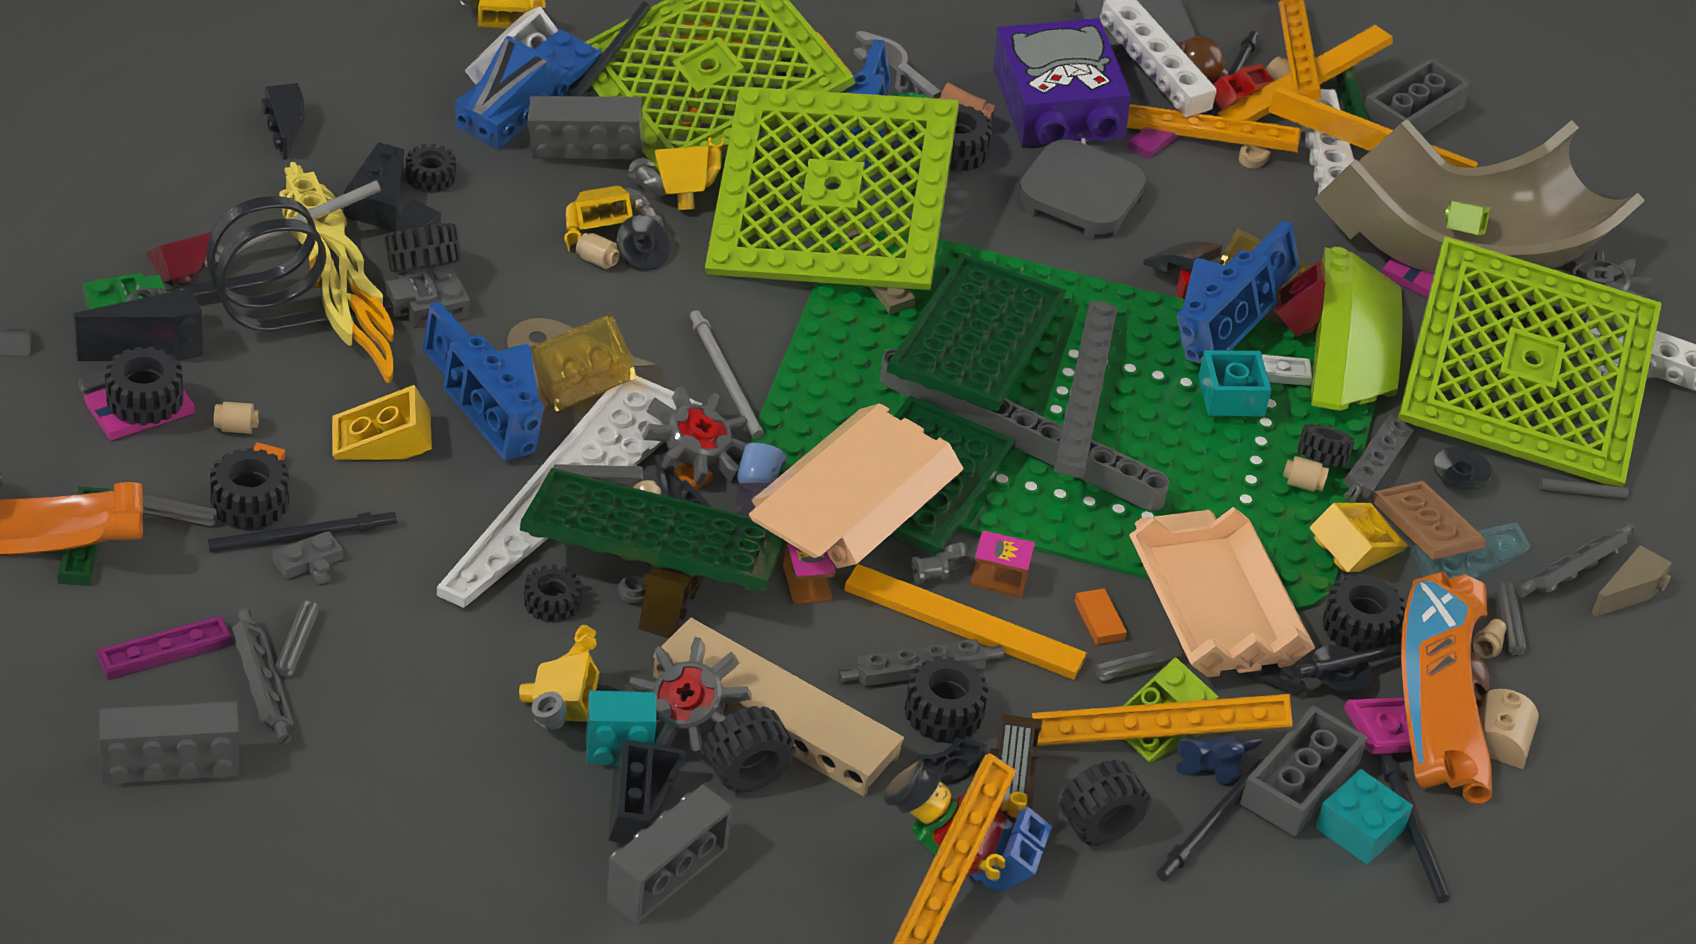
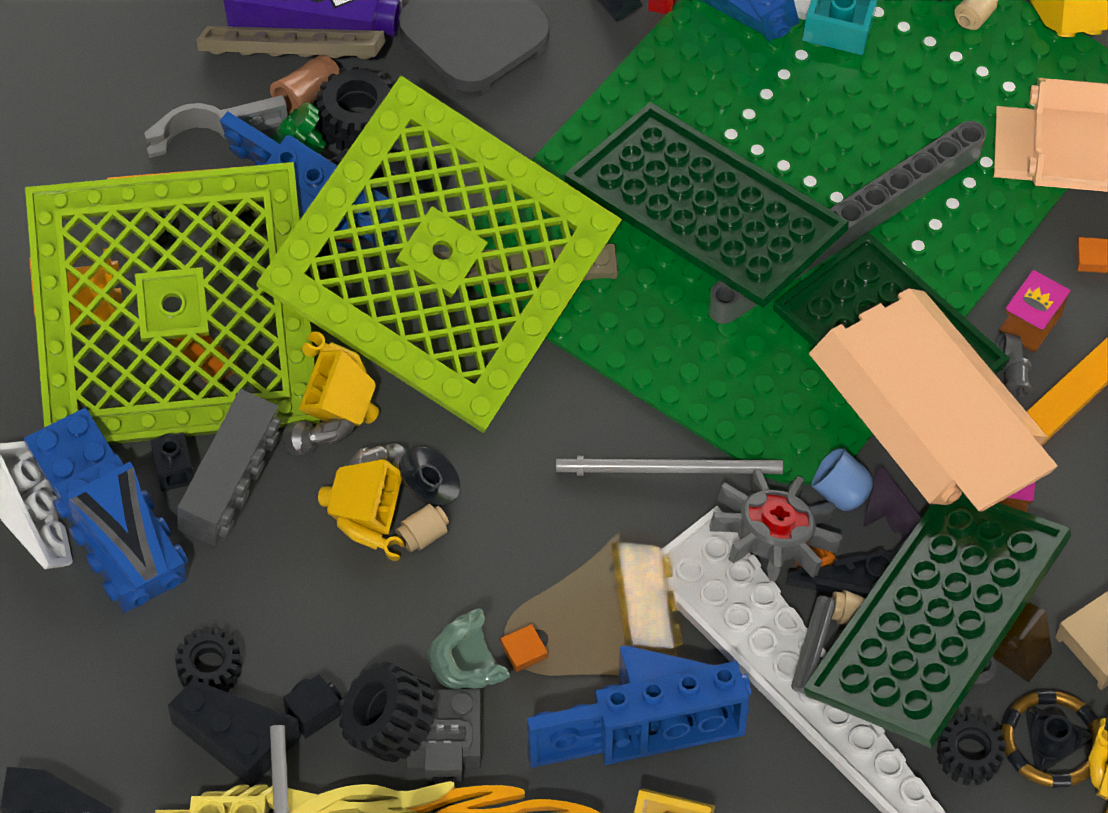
camera: 65 degrees left, 15 degrees up
(495, 284) = (461, 655): none -> sand green hair
(522, 326) = (524, 648): none -> orange tile
(603, 638) = (1050, 737): none -> black piece
(610, 51) = (95, 410): black bar -> none
(995, 85) = (298, 41): none -> dark tan plate
(1085, 390) = (817, 140): dark grey plate -> none

